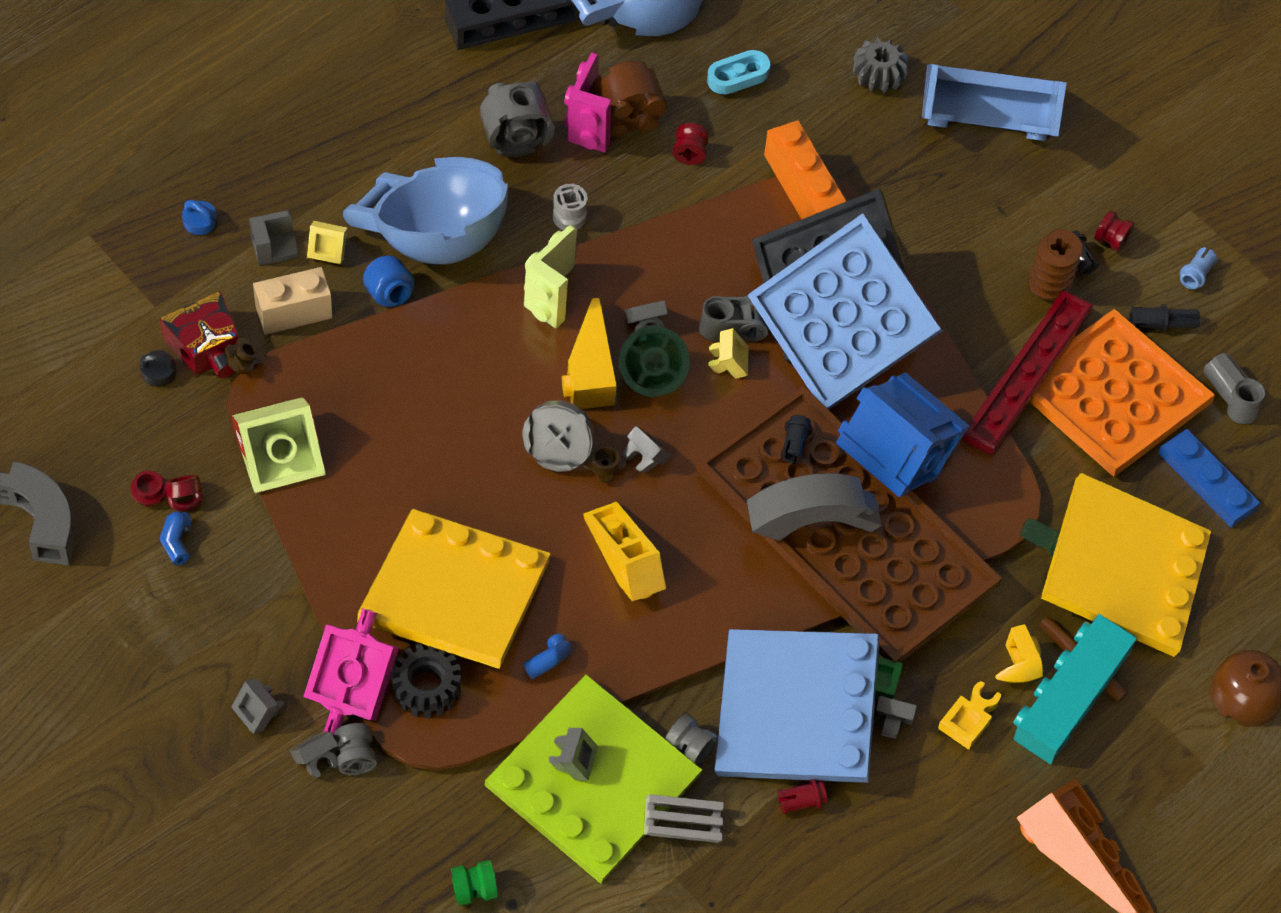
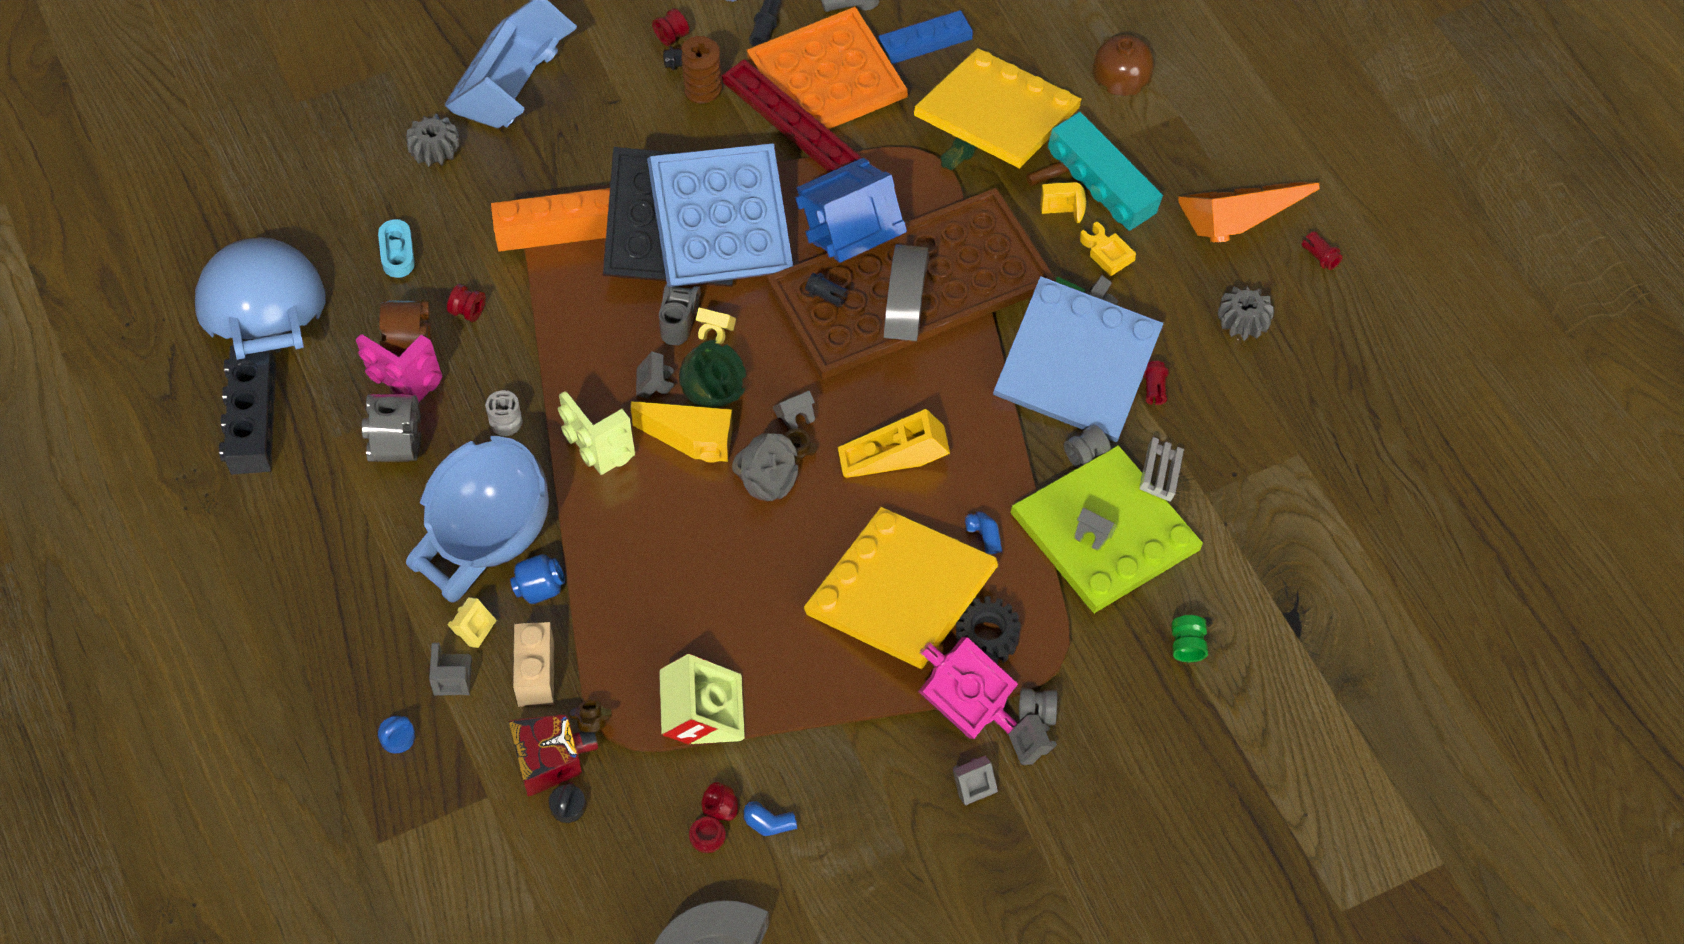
camera: 70 degrees left, 0 degrees up
(940, 864) = (1245, 312): none -> dark grey gear

